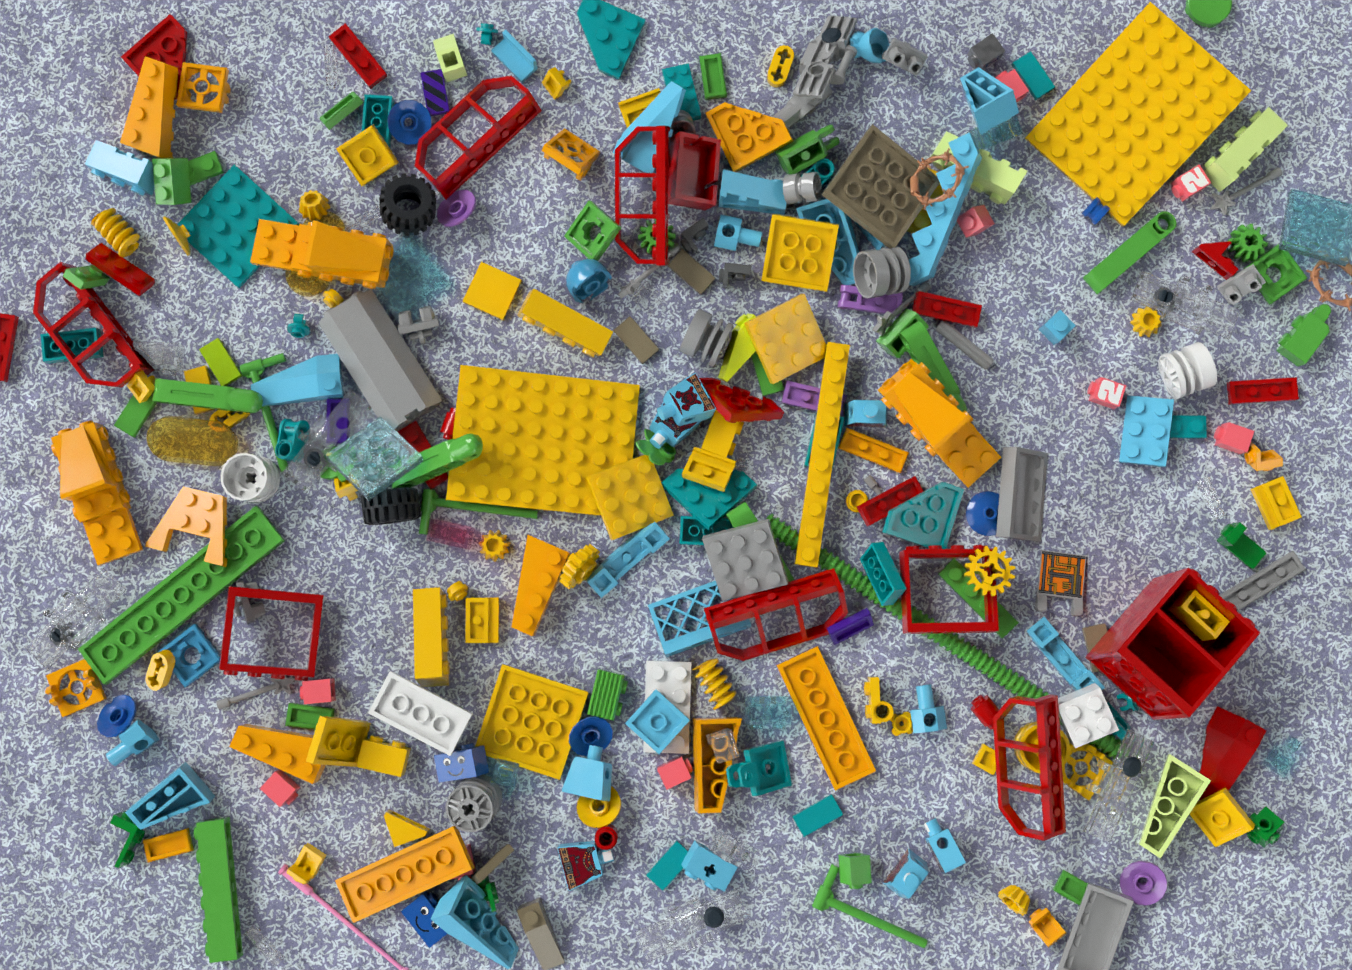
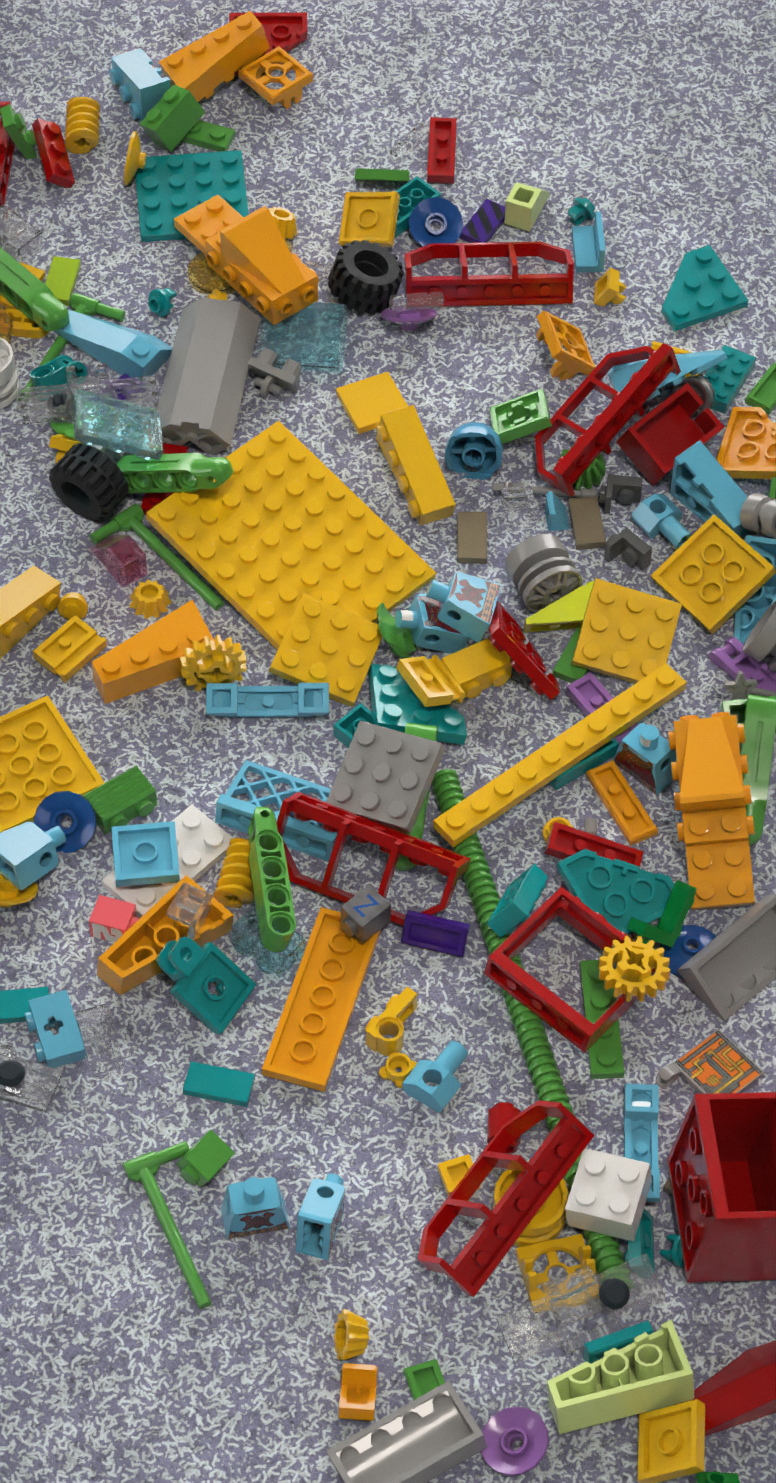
camera: 40 degrees right, 30 degrees down
(453, 195) = (416, 301): none -> clear axle
(670, 281) = (556, 513): none -> medium azure slope
(773, 700) = (275, 889): none -> bright green piece
(810, 655) = (365, 914): none -> flat silver brick
(969, 512) = (671, 921): none -> green bracket
(1148, 784) = (594, 1349): none -> teal tile

